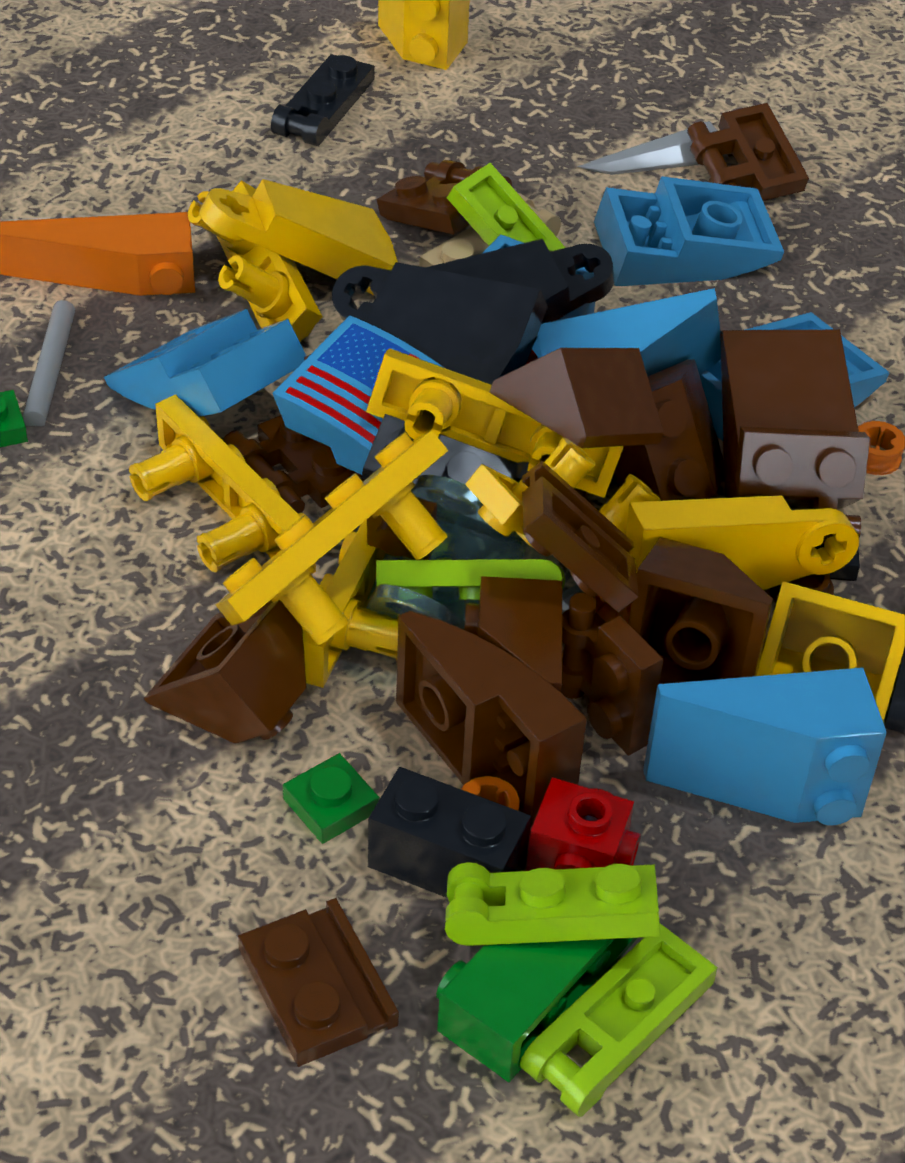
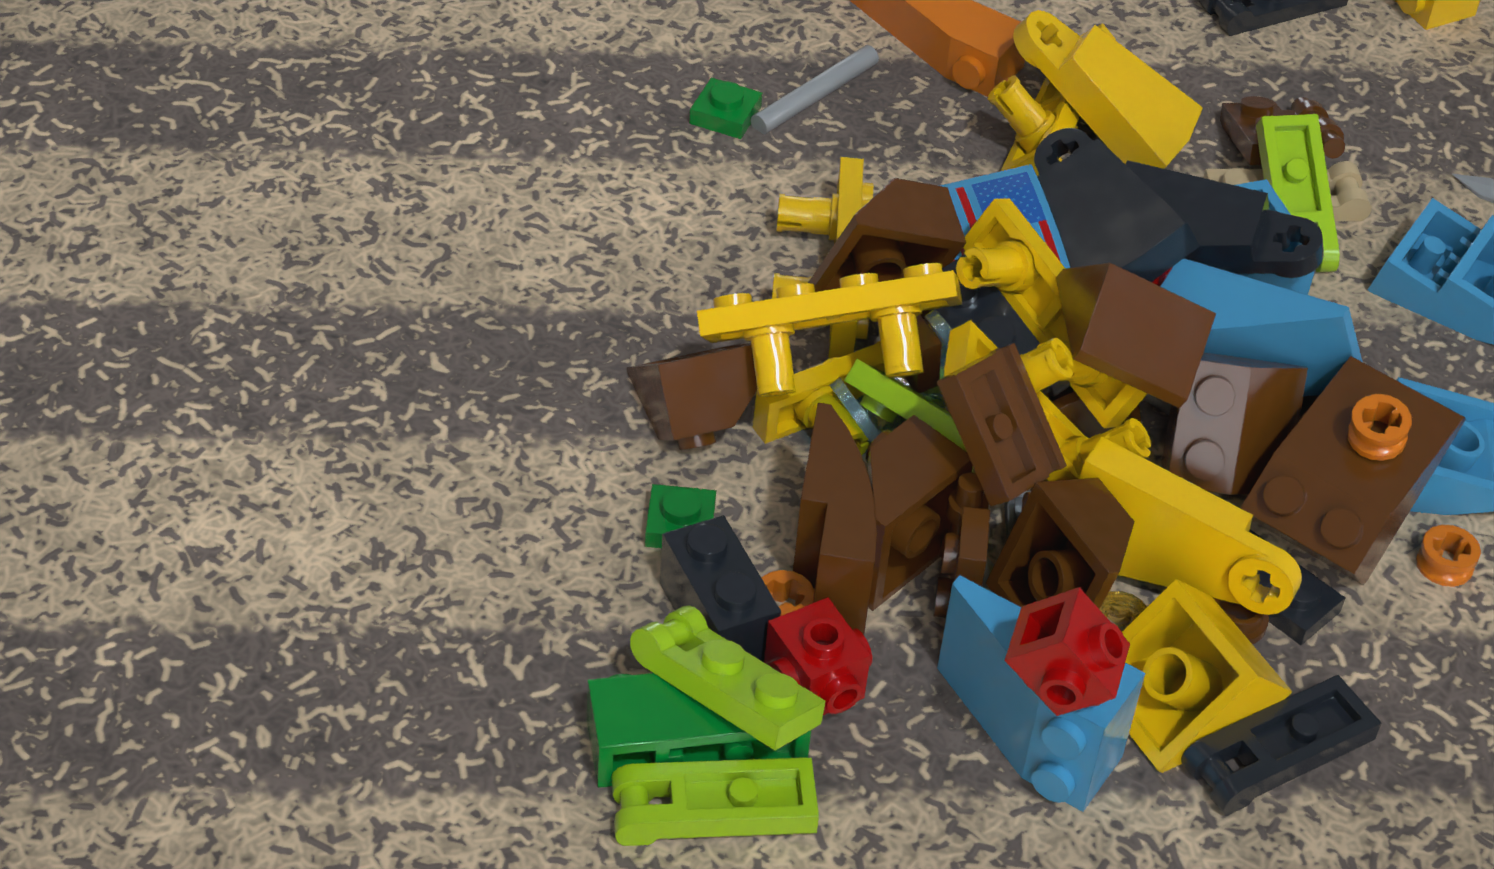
camera: 40 degrees right, 0 degrees up
(211, 365) = (918, 150): dark azure slope -> none
(312, 449) = (895, 230): none -> reddish brown slope
(317, 982) = (536, 628): reddish brown plate -> none
(794, 385) = (1382, 409): none -> orange bush
(803, 464) = (1308, 507): plate -> none
(833, 686) = (1068, 652): none -> red brick

